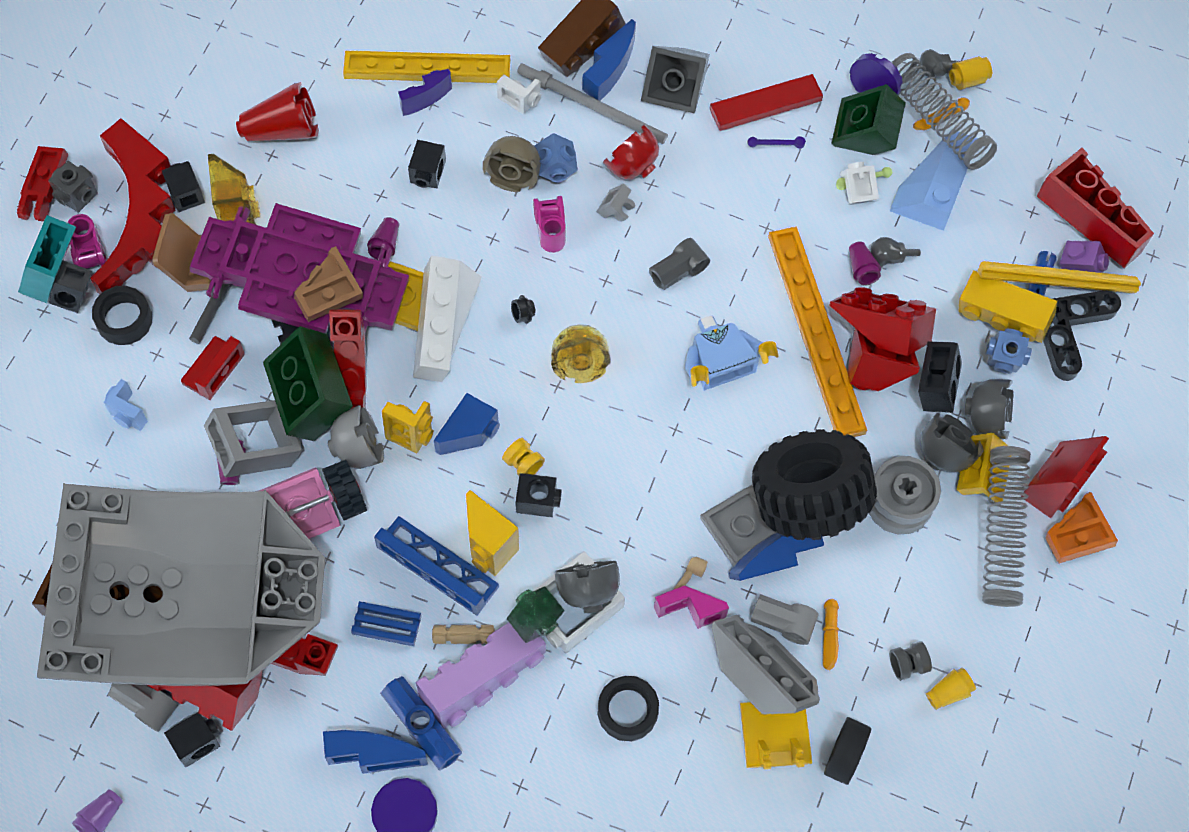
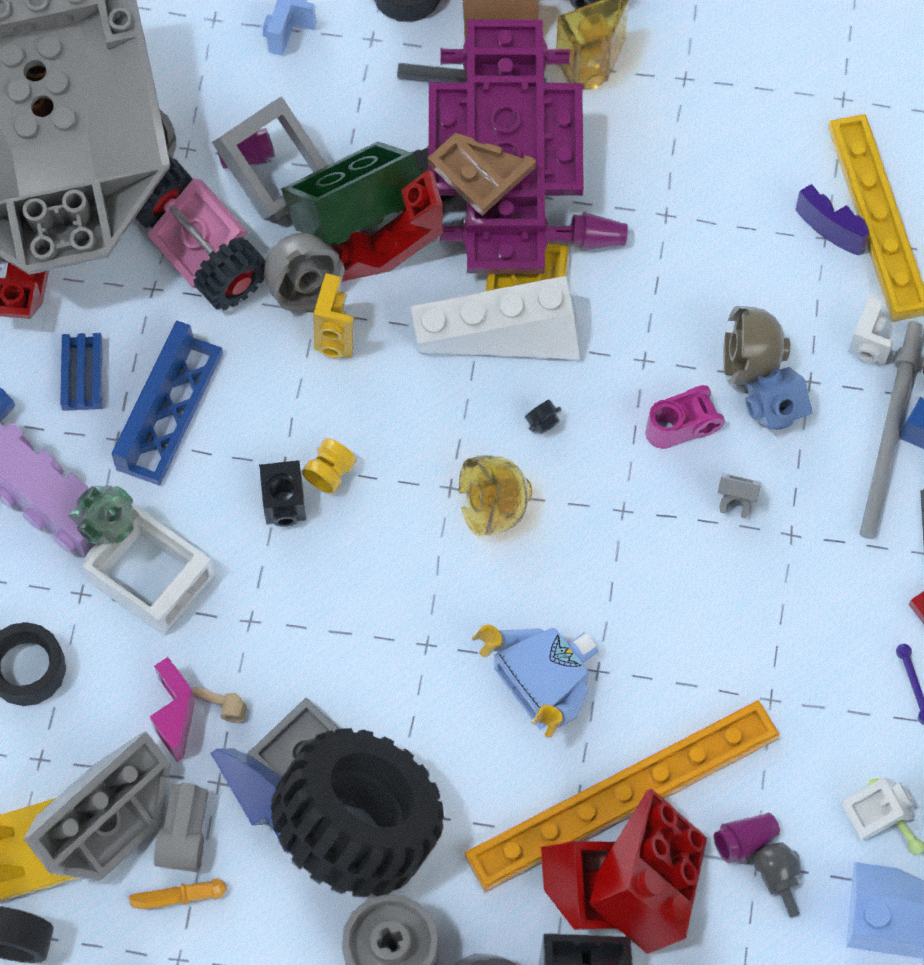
camera: 80 degrees right, 0 degrees up
(213, 366) = (367, 99): red panel -> none
(280, 117) = (733, 70): red cone -> none
(427, 164) = (720, 250): black brick -> none
(461, 634) = (84, 453): tan axle -> none
(467, 426) = (358, 390): blue slope -> none
(491, 535) = (207, 442): yellow slope -> none
(589, 584) = (154, 563): dark grey cylinder -> none
(635, 156) = (816, 494): red cylinder -> none
(685, 260) = (676, 599): dark grey piece -> none

